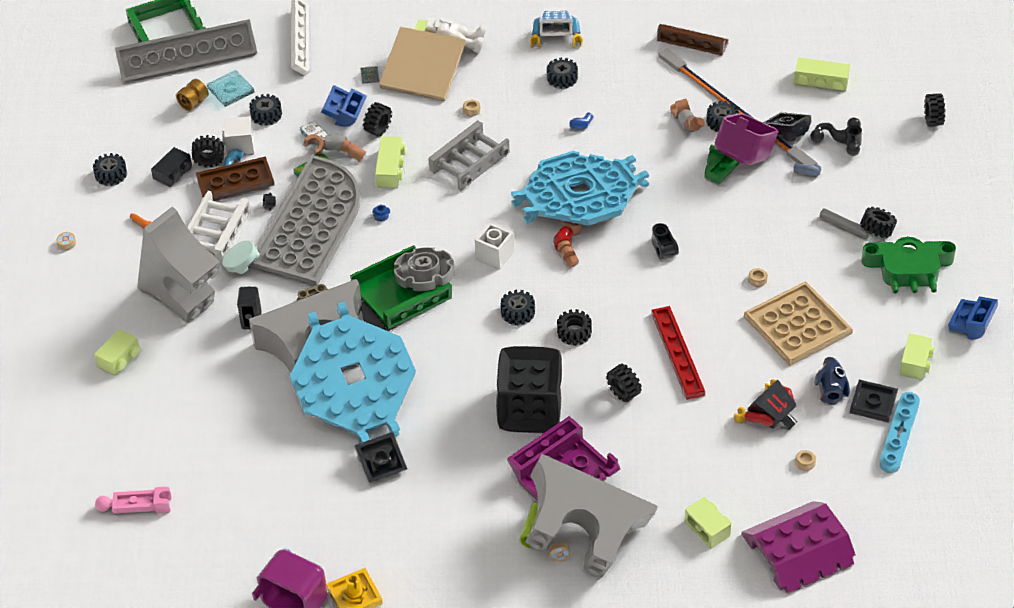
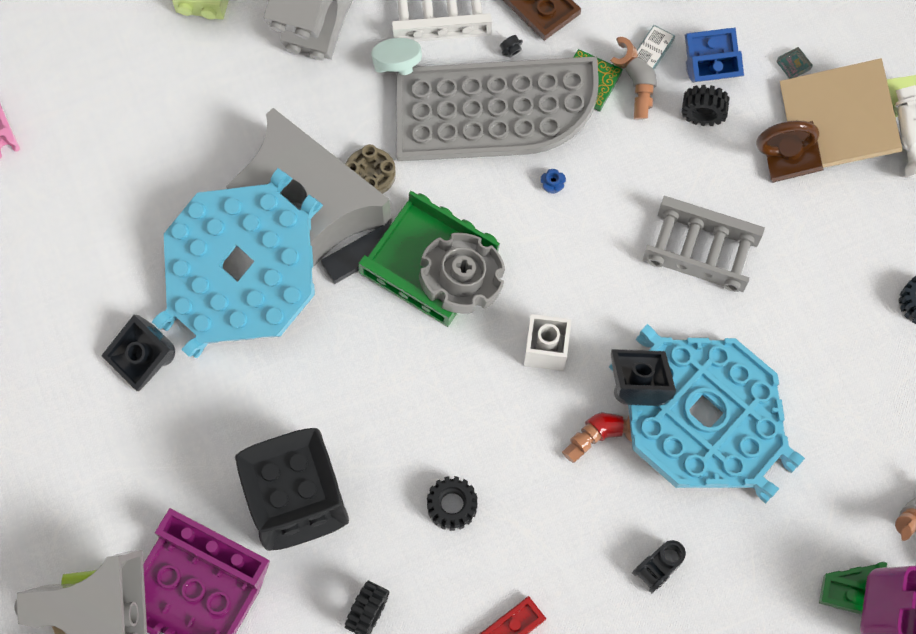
camera: 65 degrees right, 20 degrees up
(248, 305) = (314, 101): black brick -> none
(390, 162) = (643, 153): yellowish green brick -> none
(432, 92) = (791, 149): none -> reddish brown tile
(471, 108) = (799, 210): tan tile -> none
(517, 307) = (458, 406): black wheel -> none
(548, 199) = (642, 377): none -> black slope
(581, 123) = (842, 365): blue arm -> none

